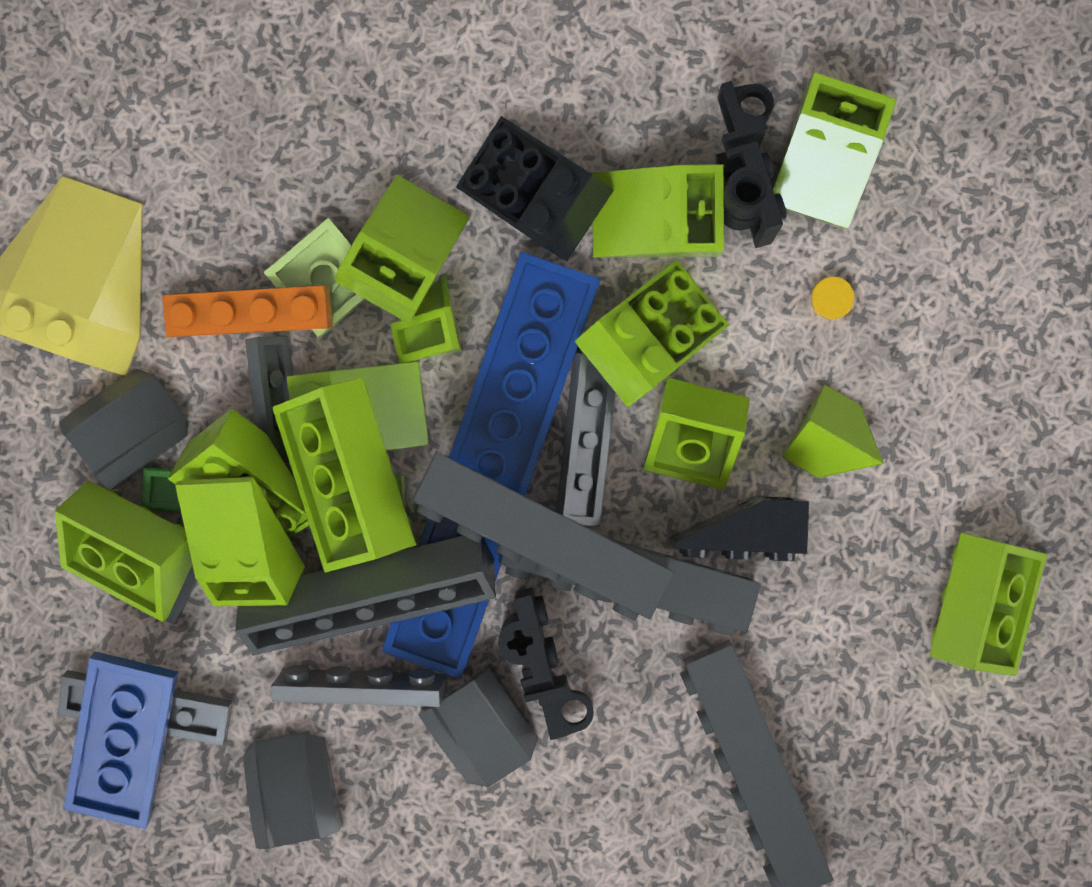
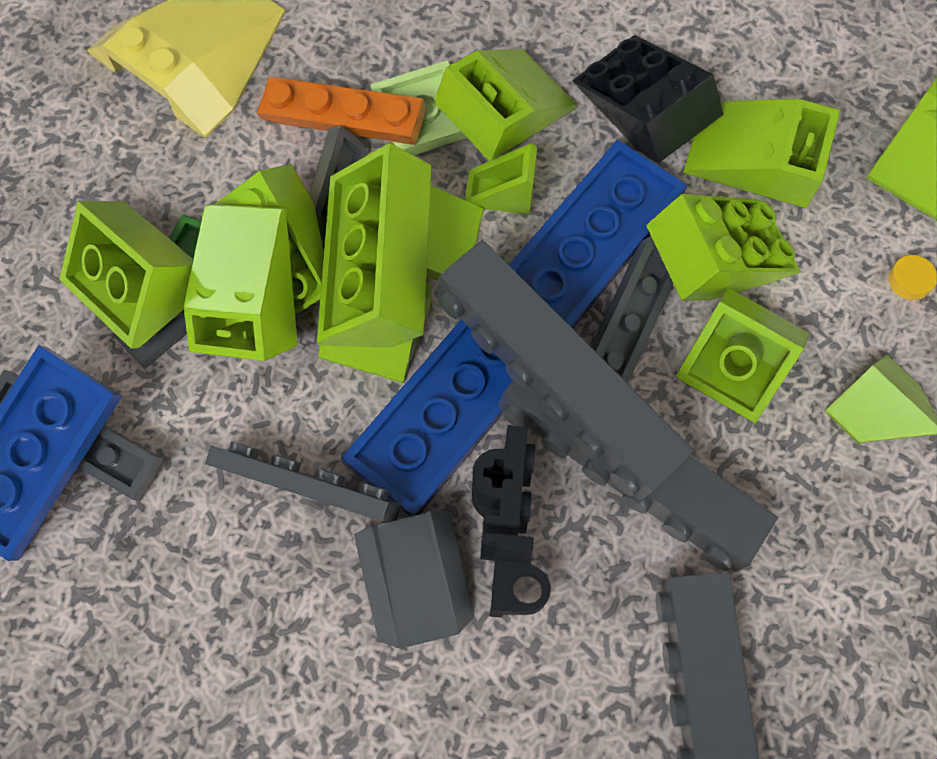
camera: 20 degrees right, 20 degrees down
(125, 428) = (180, 174): dark grey slope -> none
(291, 790) = (182, 575): dark grey slope -> none
(373, 594) = (354, 384): dark grey brick -> none
(748, 167) = (864, 134): black plate -> none
(756, 525) = (792, 455): black slope -> none

